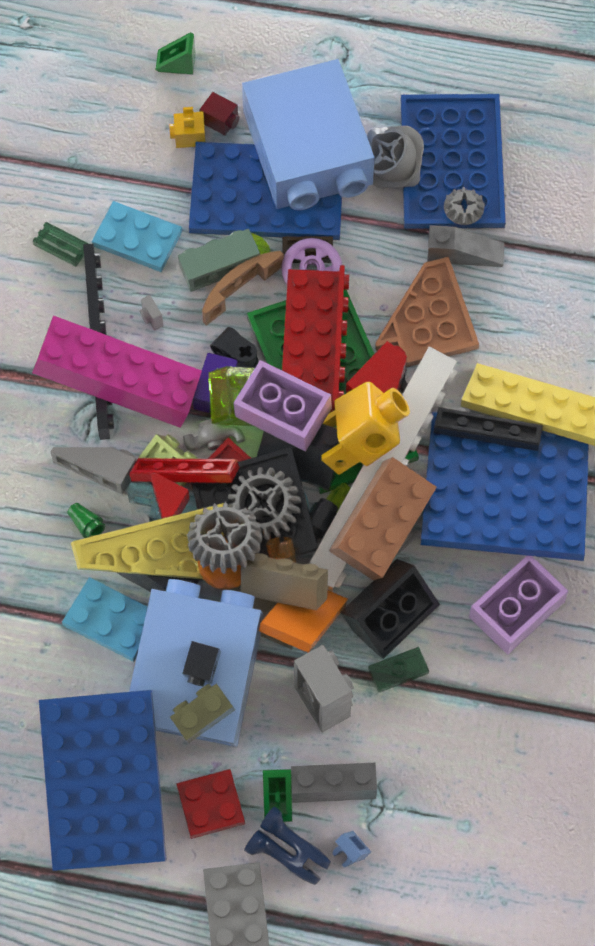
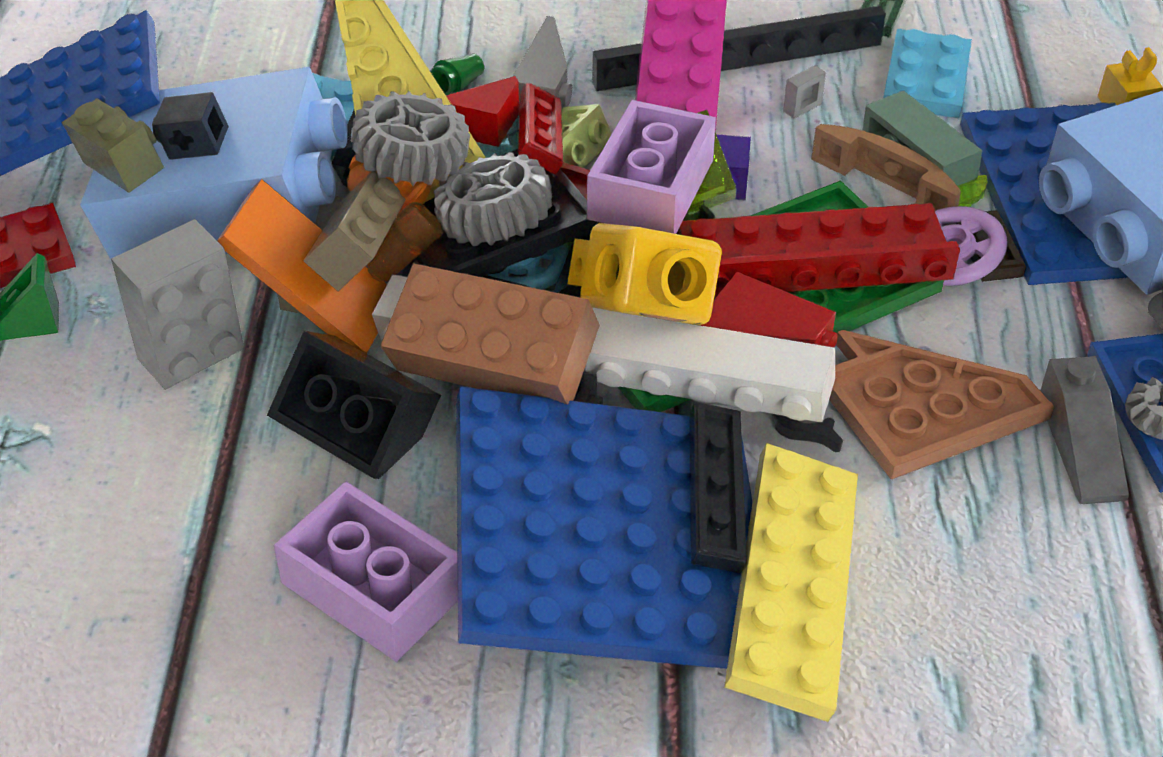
camera: 80 degrees right, 20 degrees down
(234, 346) = (773, 180): black piece -> none
(333, 782) = (35, 365): flat silver brick -> none
(398, 669) = (246, 434): clear green plate -> none

